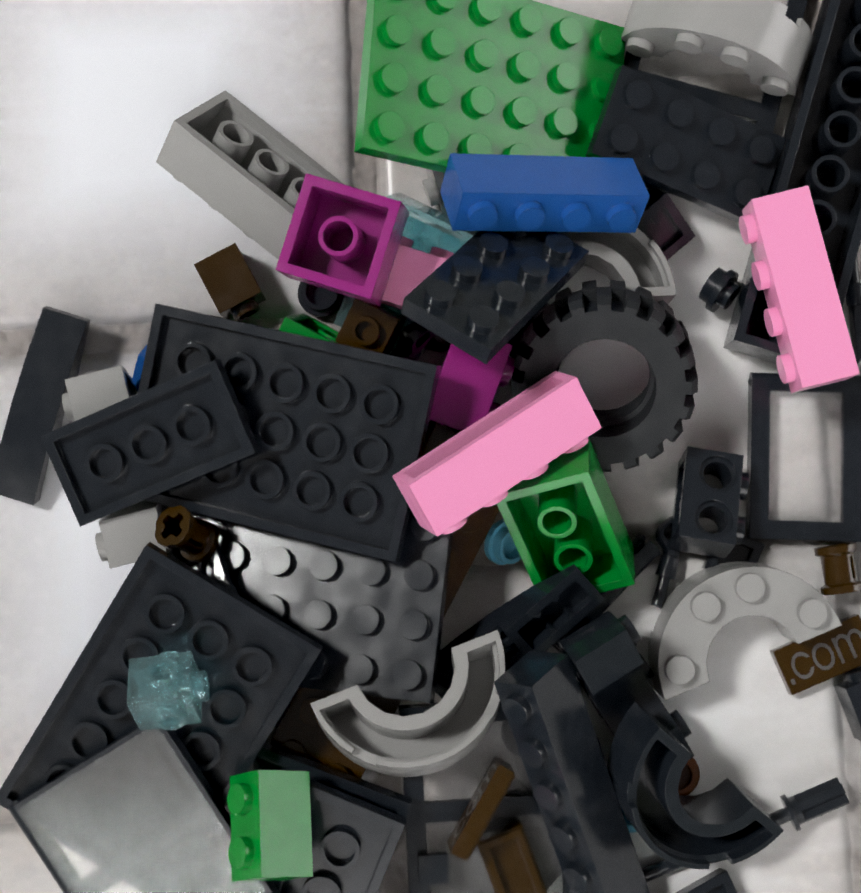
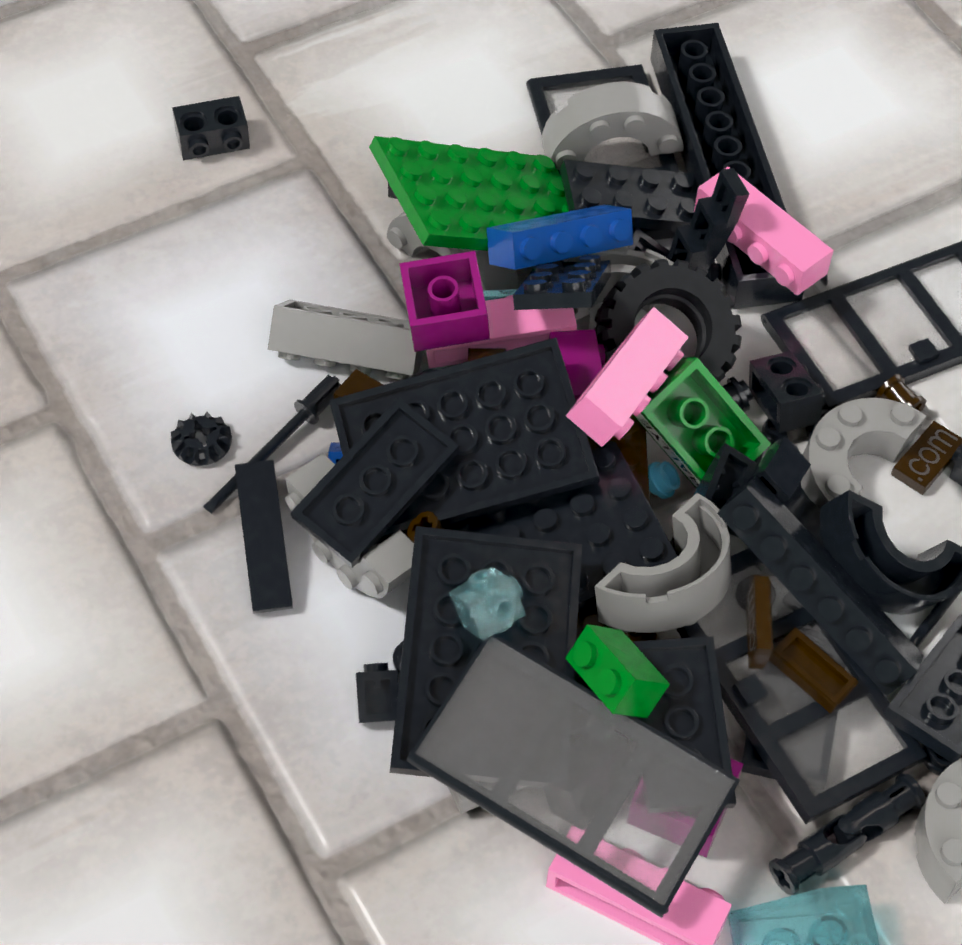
camera: 30 degrees left, 30 degrees down
(50, 255) = (191, 450): none -> black gear
(62, 649) = (377, 693): none -> black bracket
(169, 259) = (307, 409): none -> black piece
(654, 474) = (739, 392): none -> black plate
(729, 264) = (711, 222): none -> black slope

